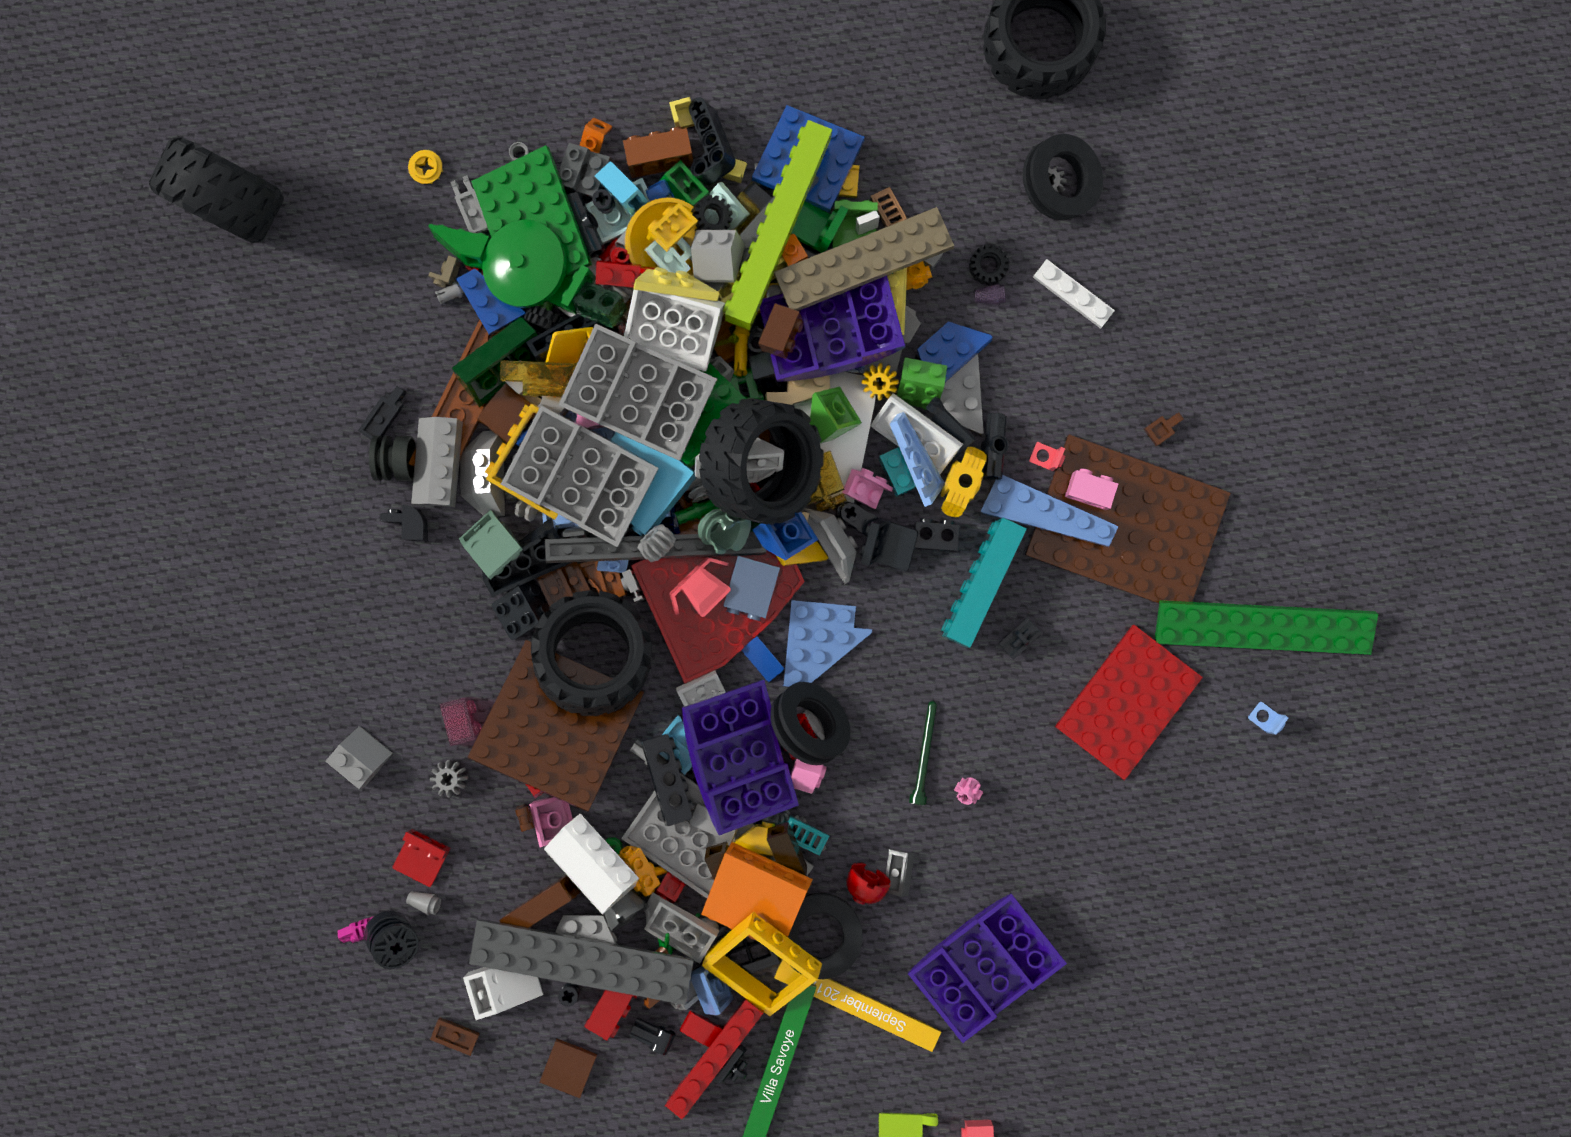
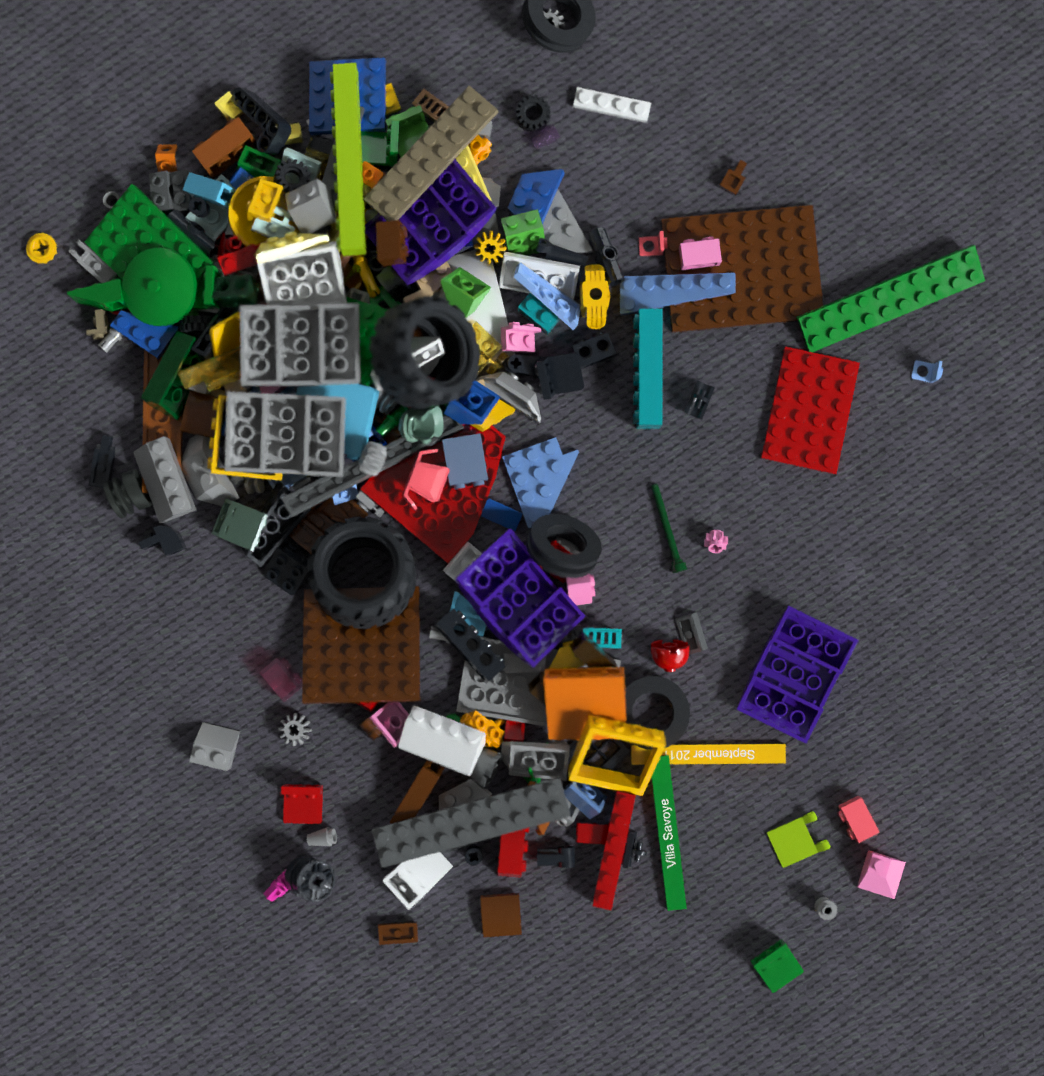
camera: 20 degrees left, 0 degrees up
(867, 222) = (419, 125): white tile -> none

